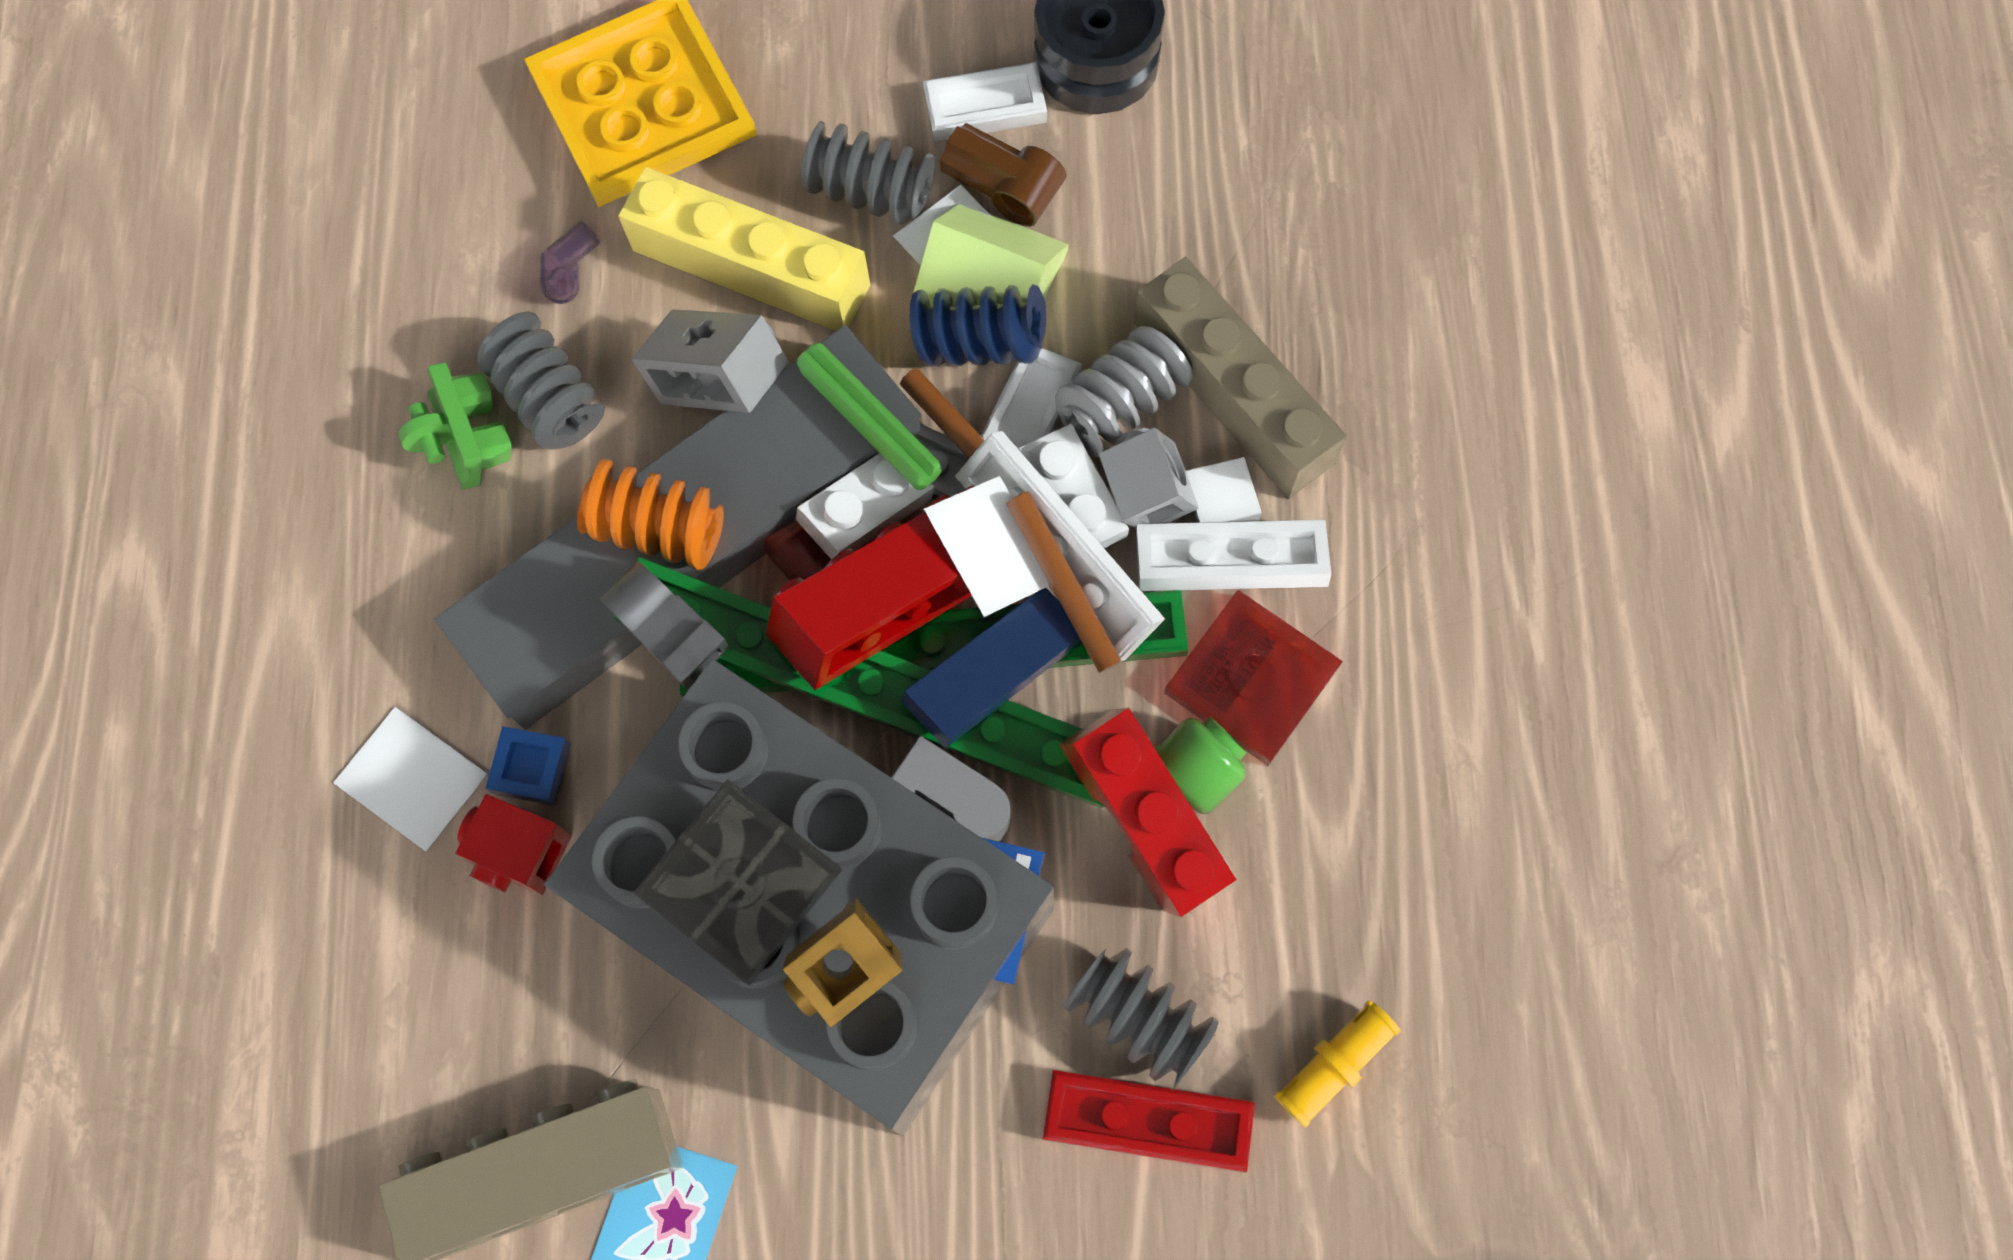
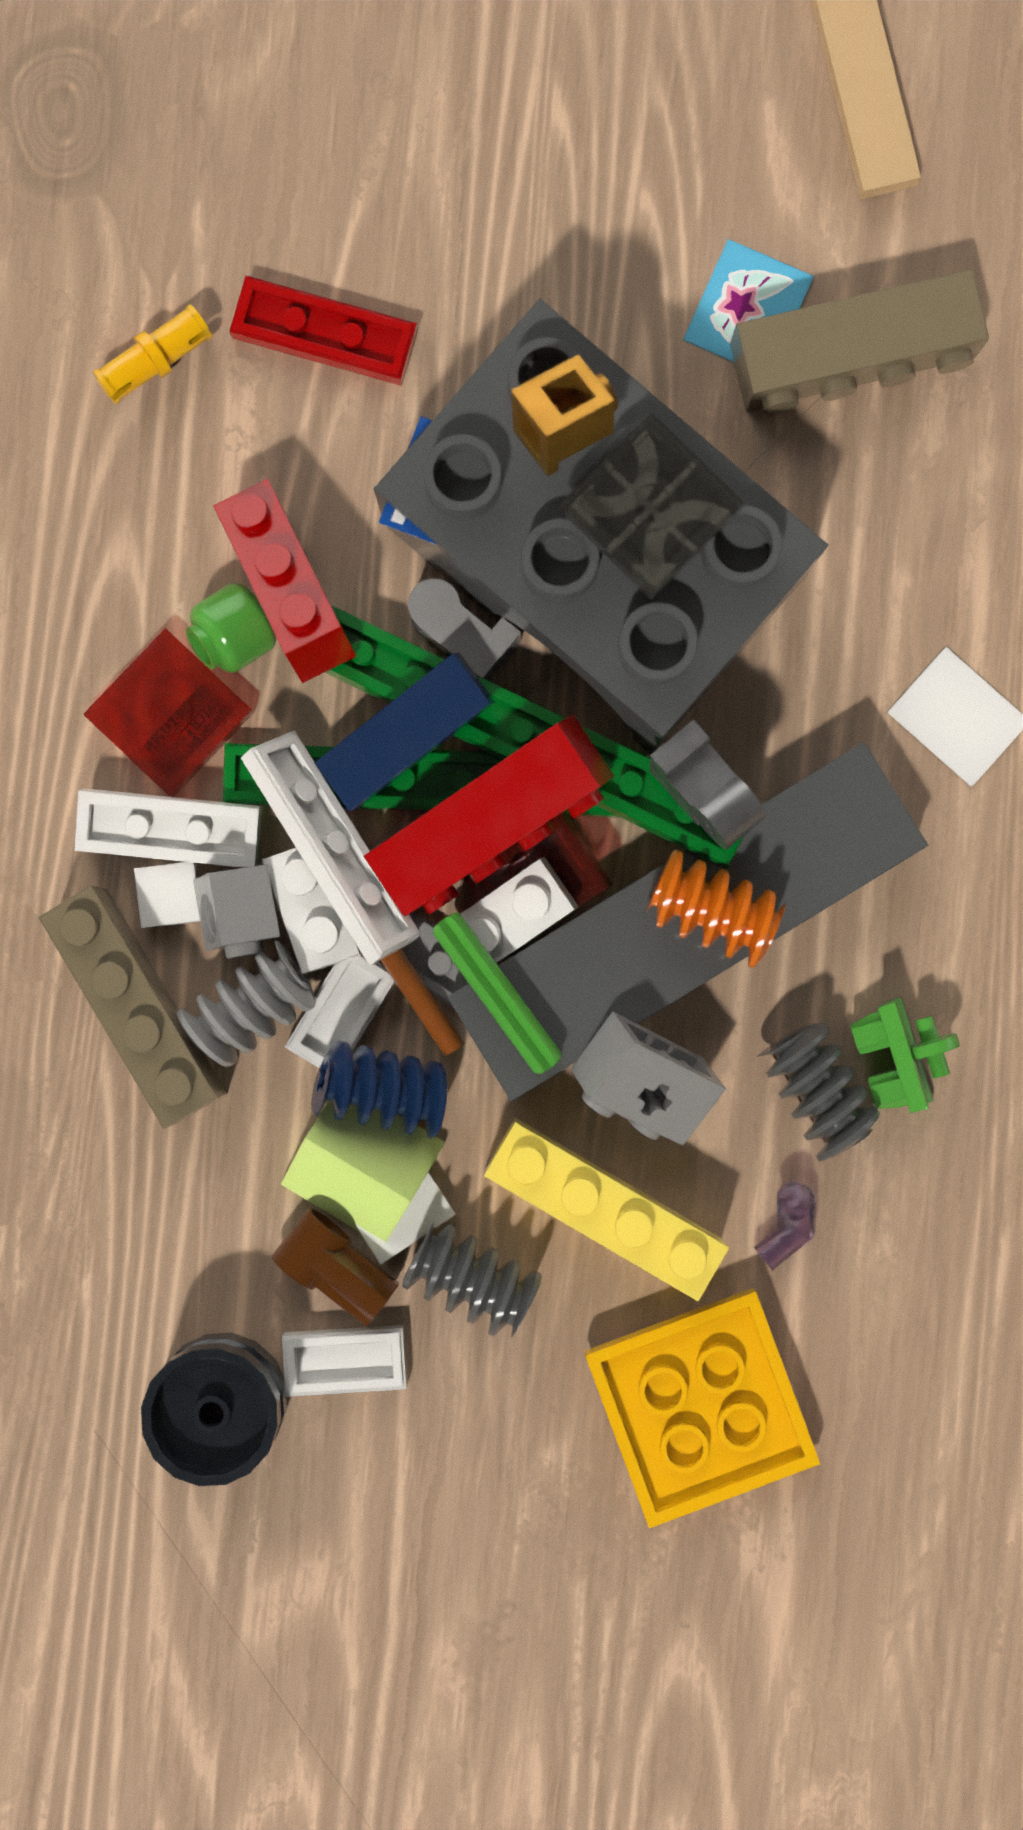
camera: 175 degrees left, 15 degrees up
(510, 845) = (867, 631): red brick -> none
(528, 765) = (847, 706): blue plate -> none
(987, 546) = (393, 843): white sticker -> none
(1063, 582) = (330, 805): dark orange bar -> none
(1141, 1015) = (310, 410): dark grey piece -> none

